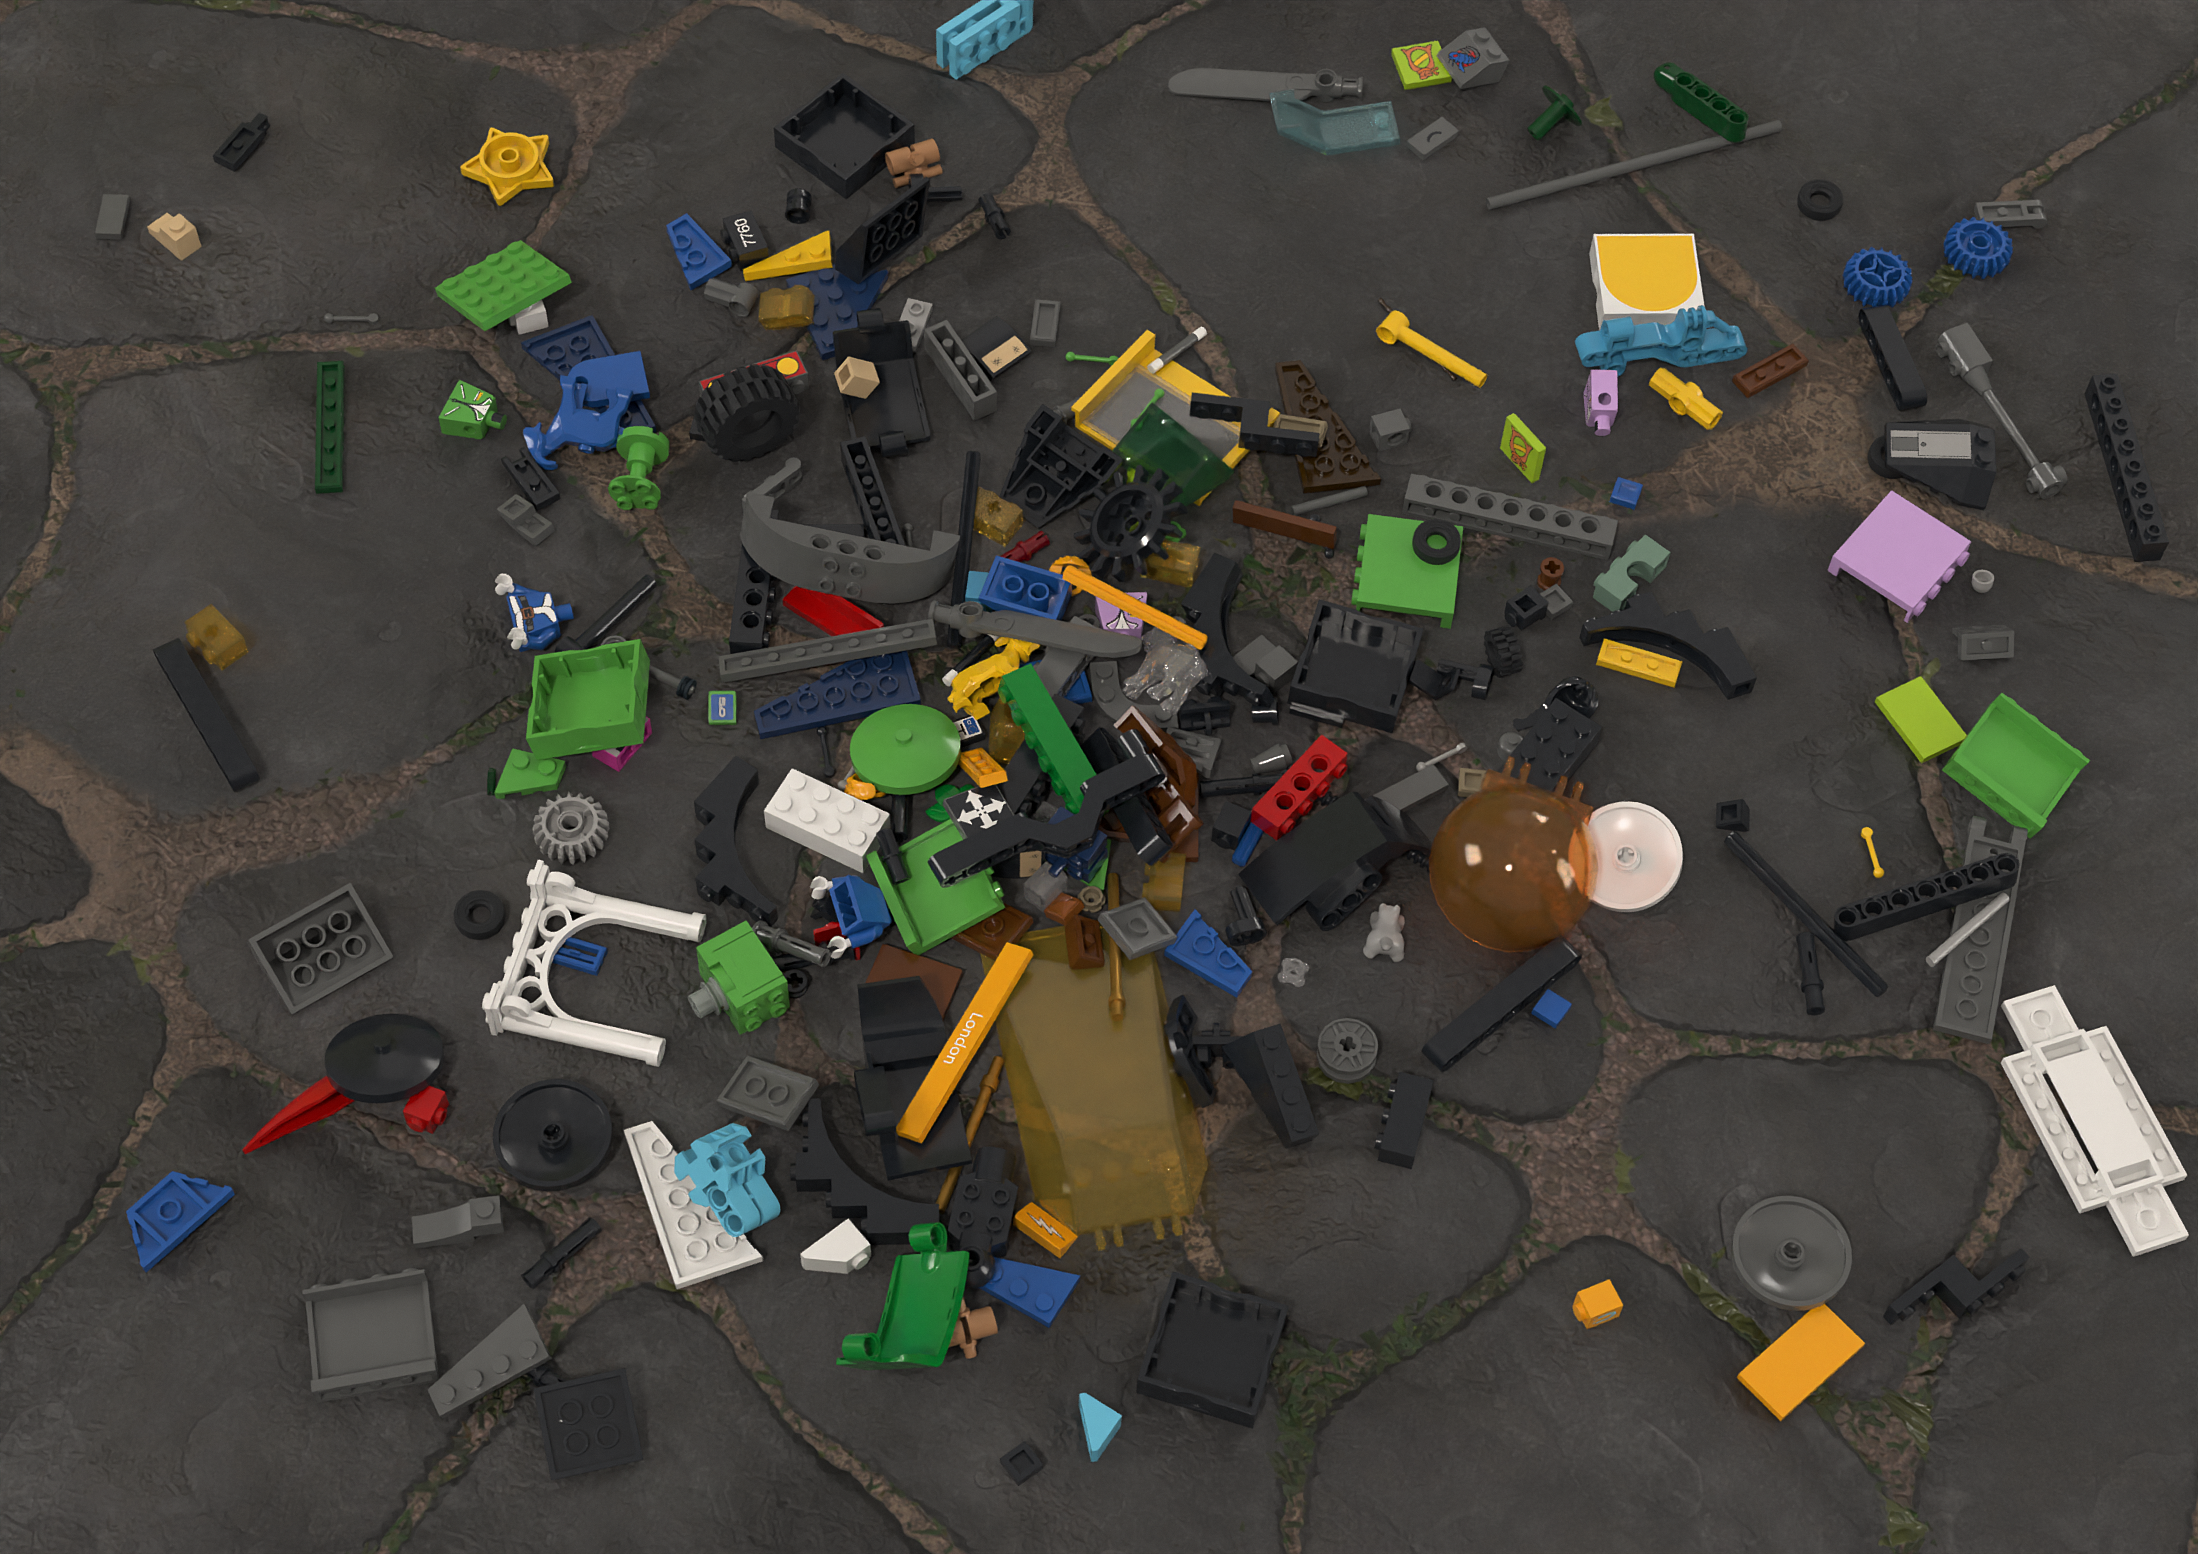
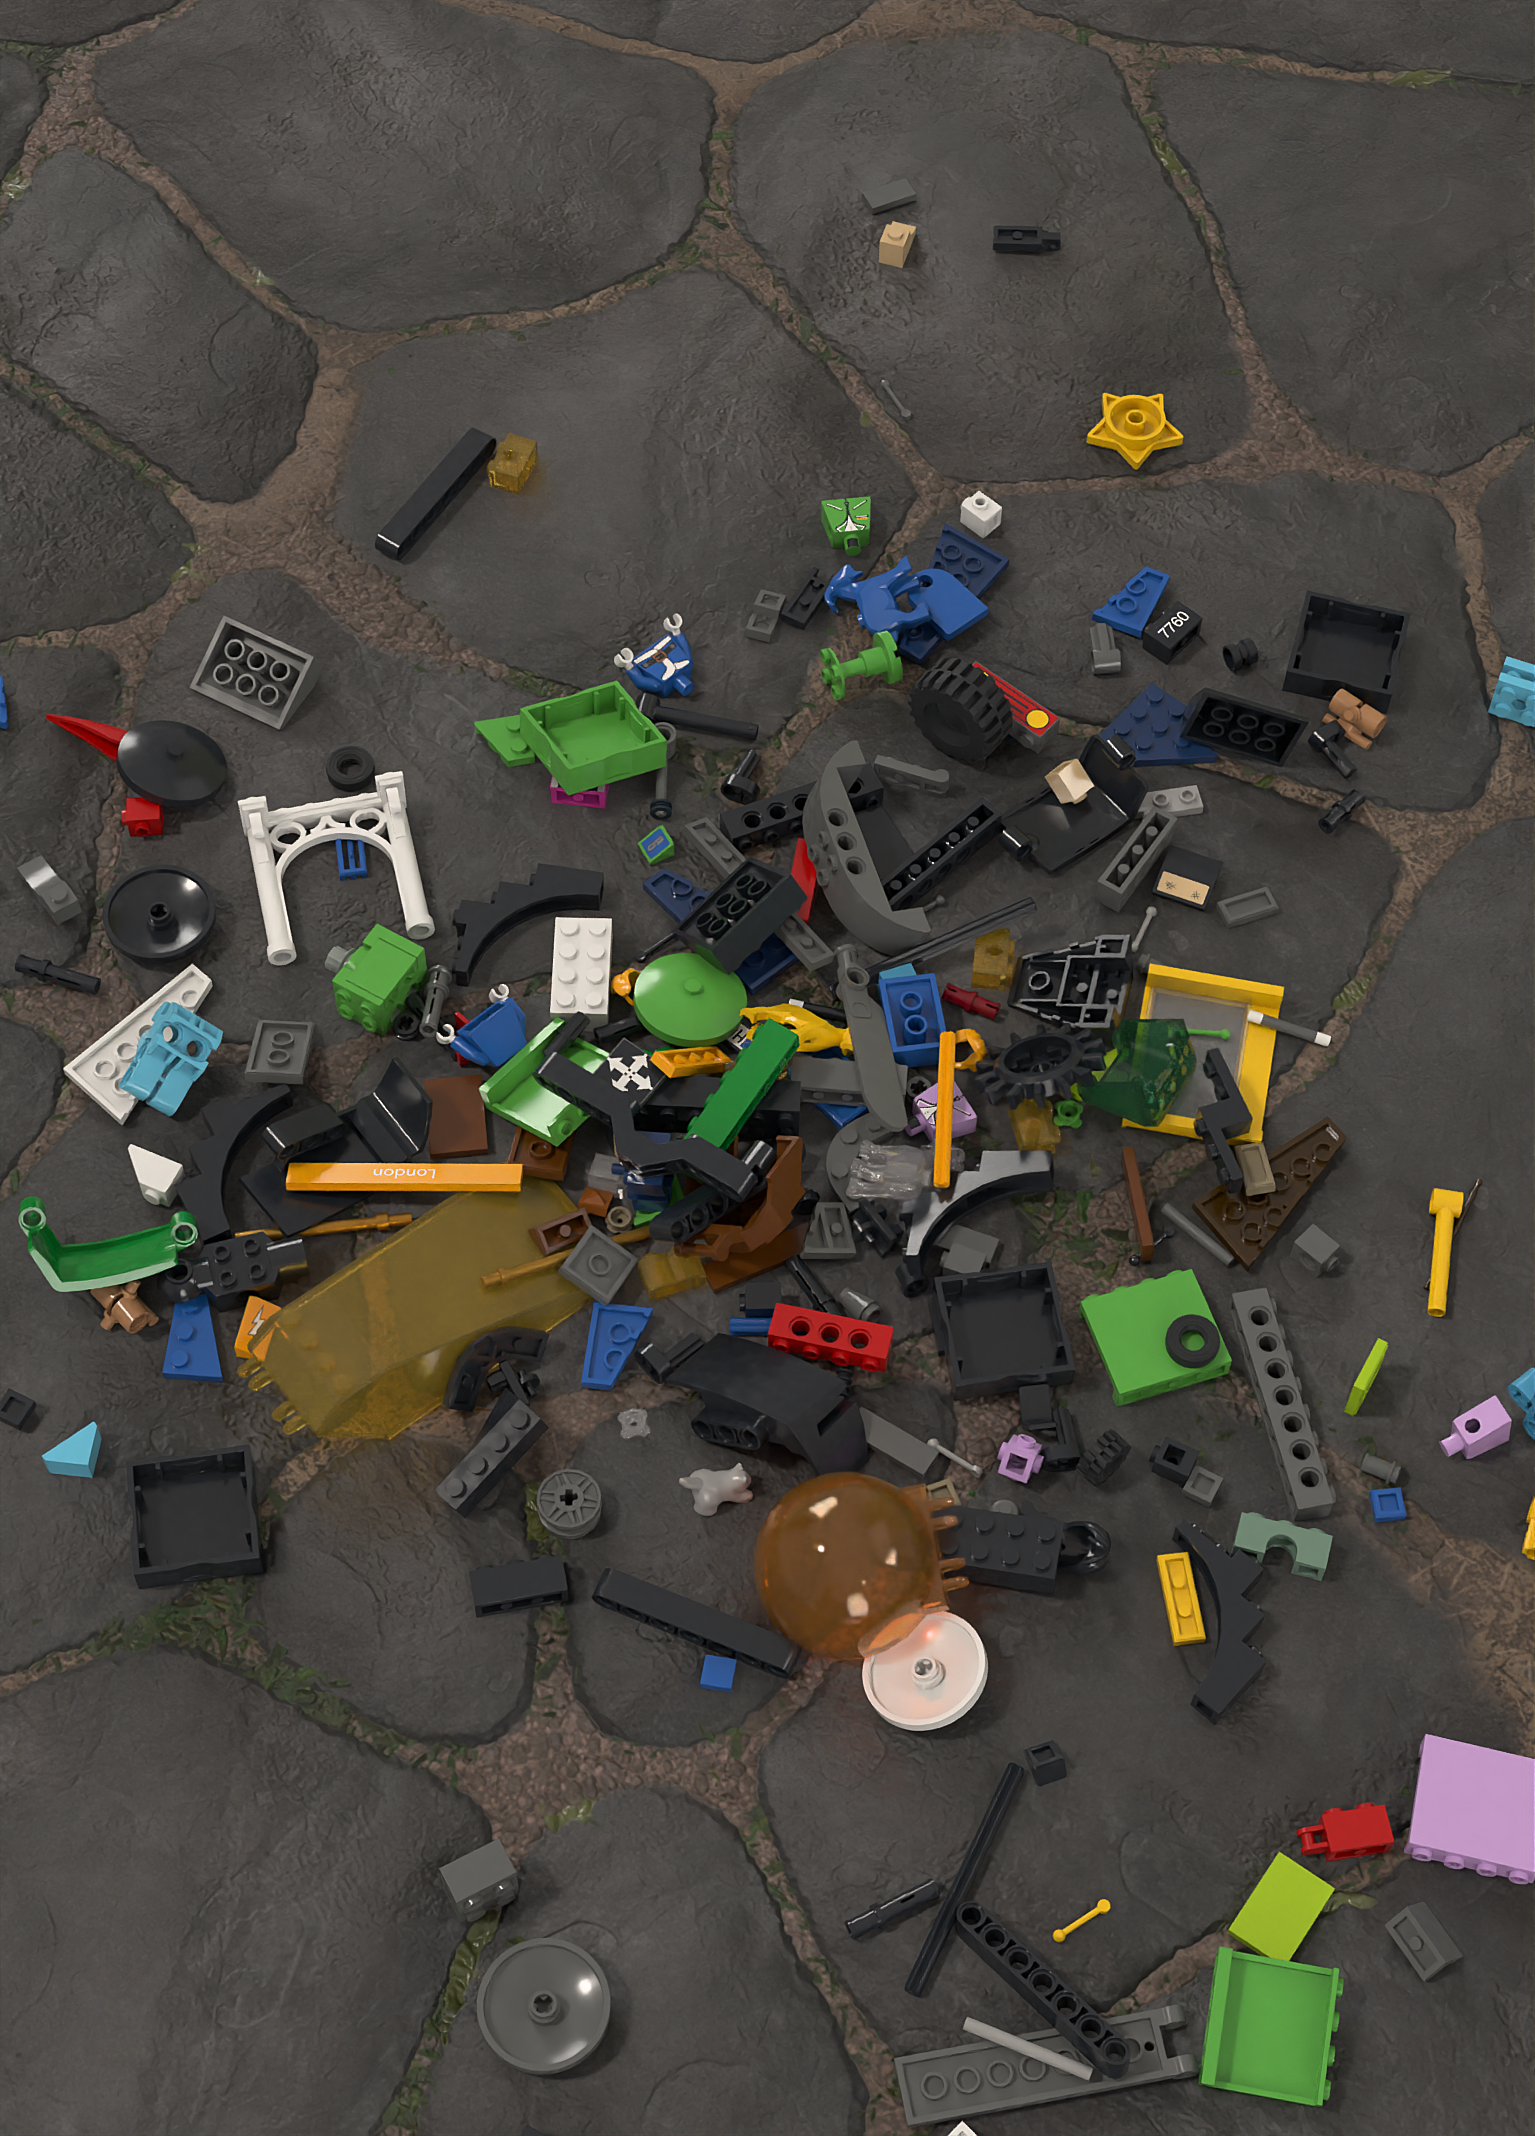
camera: 65 degrees right, 0 degrees up
(329, 427) = (774, 438): dark green tile -> none
(490, 780) = (488, 714): dark green leg -> none
(502, 285) = (992, 479): bright green plate -> none
(567, 812) = (468, 791): light grey gear -> none
(699, 620) = (738, 786): none -> black piece
(786, 307) = (1114, 694): clear yellow brick -> none
(803, 257) = (1175, 678): yellow wing -> none
(850, 667) = (740, 914): none -> black slope
(1009, 388) = (1151, 912): none -> light grey hinge
(1070, 356) = (1223, 945): bright green hinge -> none
(1472, 708) = (1020, 1458): none -> lavender brick
(1551, 571) = (1235, 1461): reddish brown bush -> none
(1597, 1304) = (401, 1841): light orange brick -> none
(1600, 478) = (1381, 1468): none -> dark grey pin
(1666, 1254) = (480, 1881): none -> dark grey brick
(1800, 1360) = (435, 2066): light orange tile -> none
(1883, 644) = (1349, 1833): none -> red brick
(1982, 581) = (1503, 1909): light grey hinge -> none

